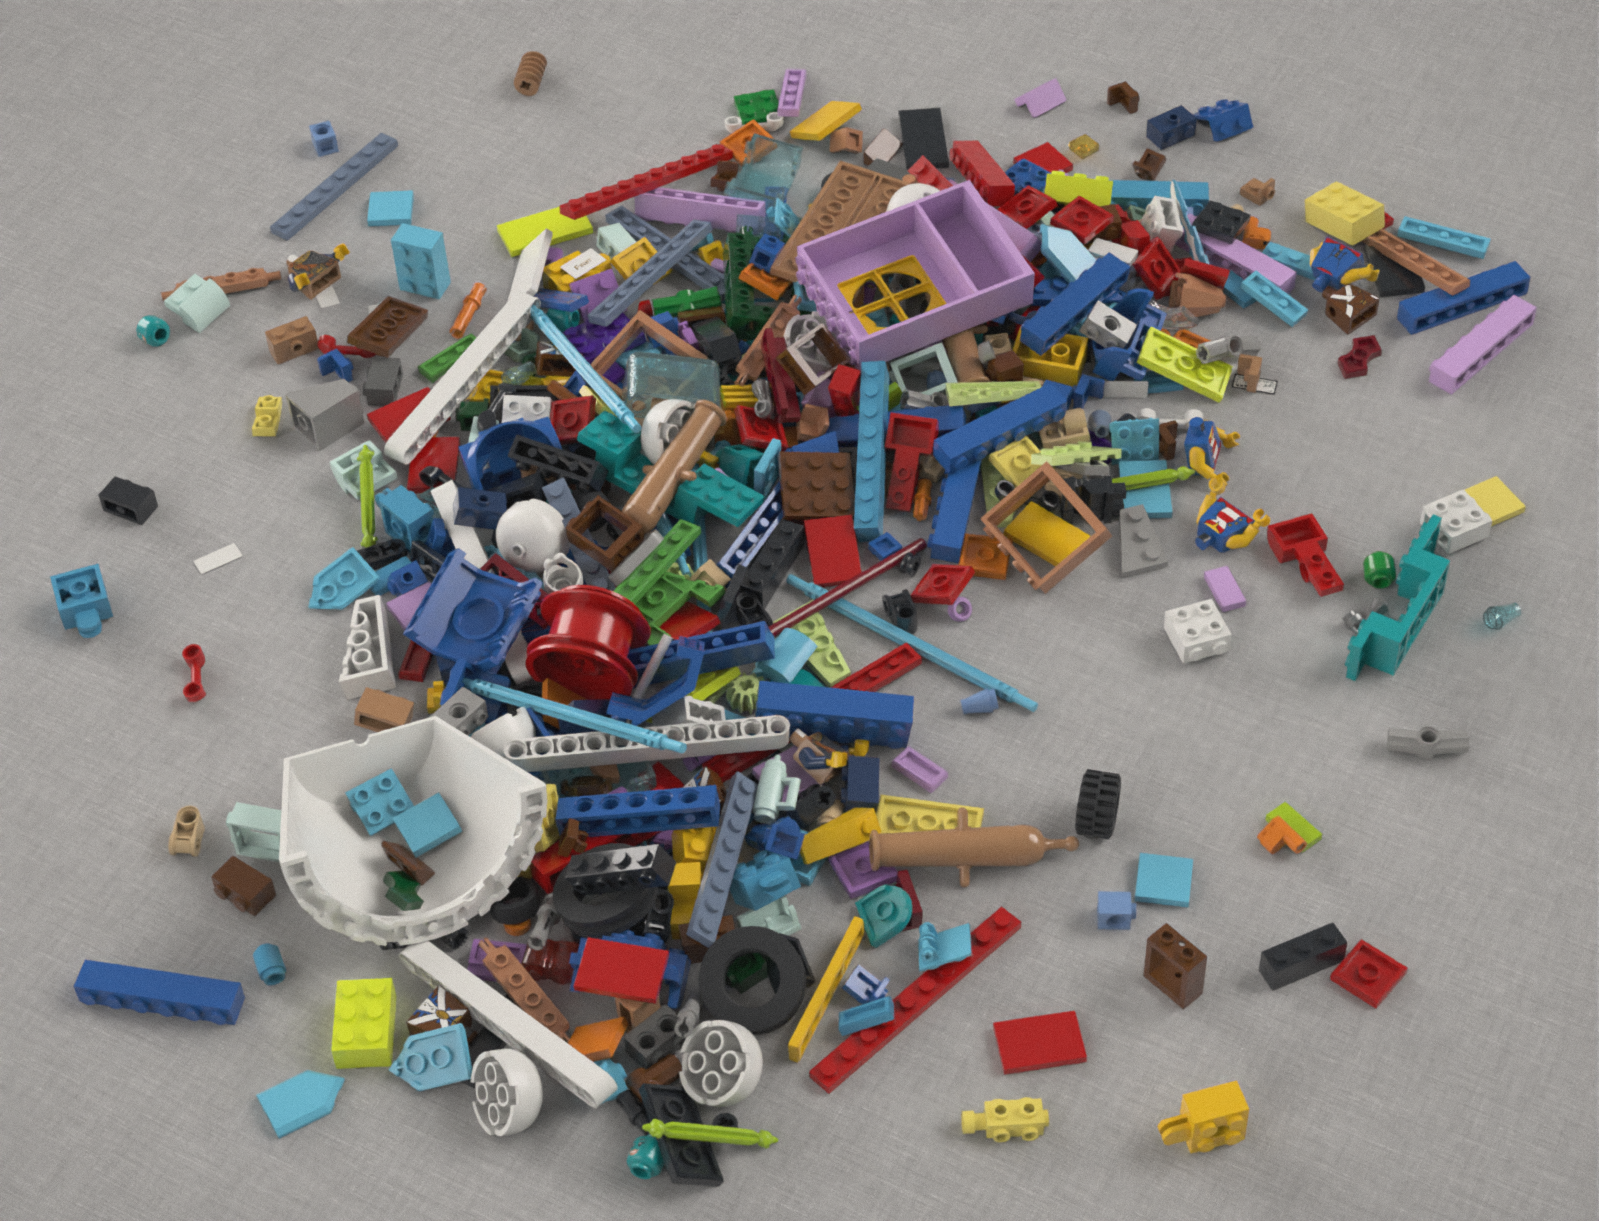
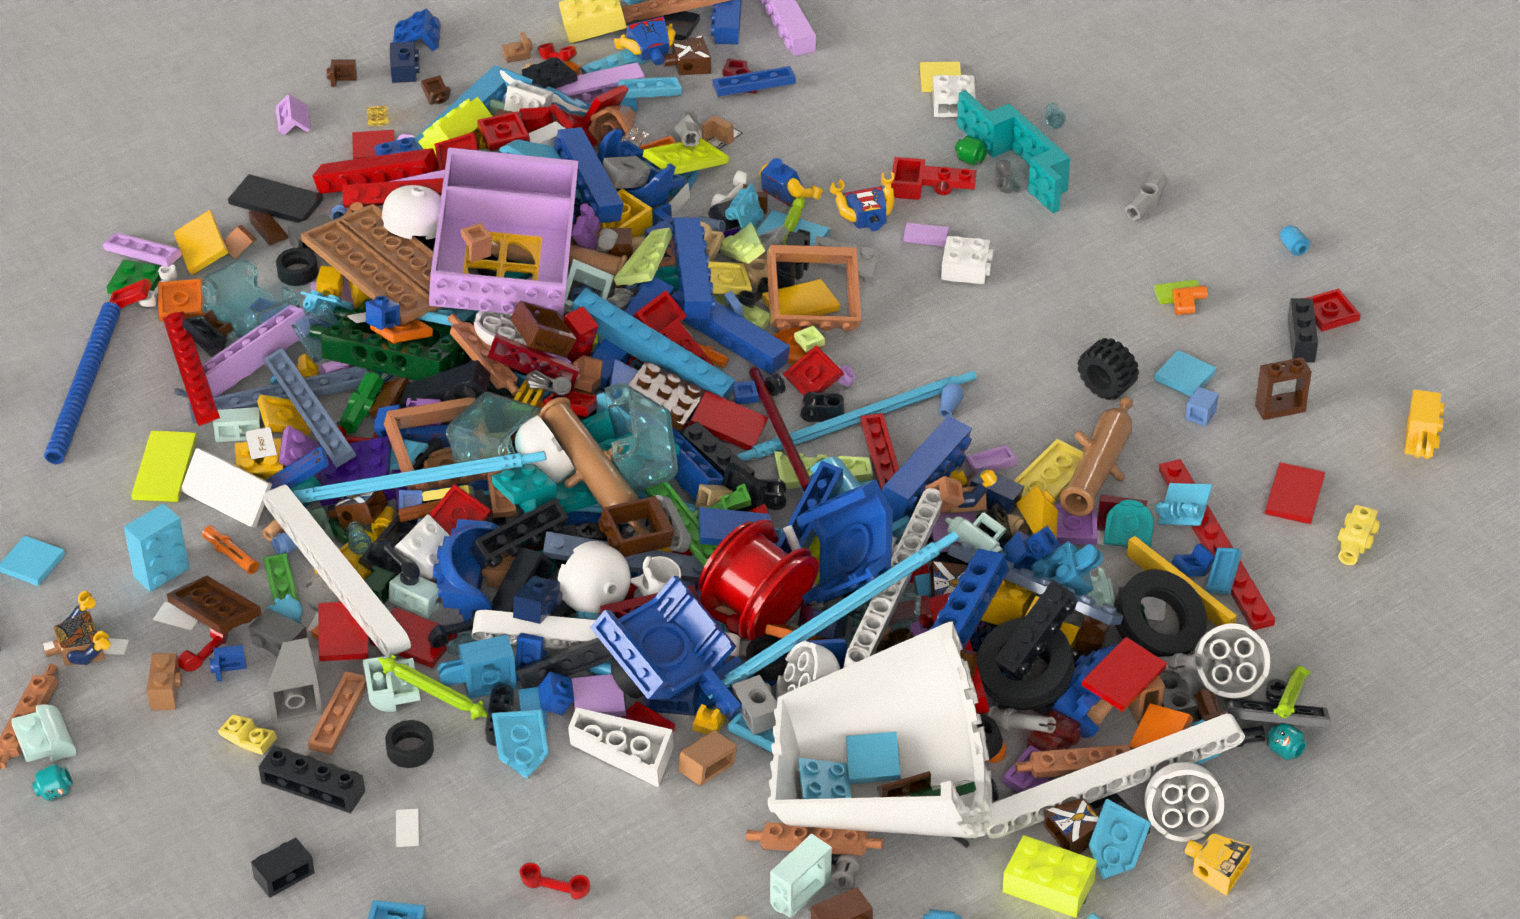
camera: 65 degrees left, 5 degrees down
(232, 474) = (312, 779): none -> black brick
(306, 528) = (414, 757): none -> black tyre
(309, 458) = (338, 713): none -> nougat plate
(417, 374) = (288, 607): none -> medium azure piece
(452, 1157) = (1219, 861): none -> yellow torso
(608, 137) = (82, 383): none -> blue piece
(659, 603) = (718, 523): none -> blue tile
(702, 171) = (205, 335): none -> black panel
(706, 482) = (652, 445): none -> clear light blue windscreen
(728, 111) = (131, 293): none -> red tile
(791, 735) = (950, 492): none -> nougat panel
(849, 252) = (478, 240): none -> nougat panel
(985, 330) = (586, 228): none -> medium lavender plate
(985, 486) = (733, 303): none -> medium blue tile
(986, 559) = (809, 338): none -> yellowish green plate
(1274, 213) = (547, 51): none -> red bar
(1350, 366) = (754, 81): none -> blue tile
(1456, 897) = (1294, 240): none -> dark azure brick

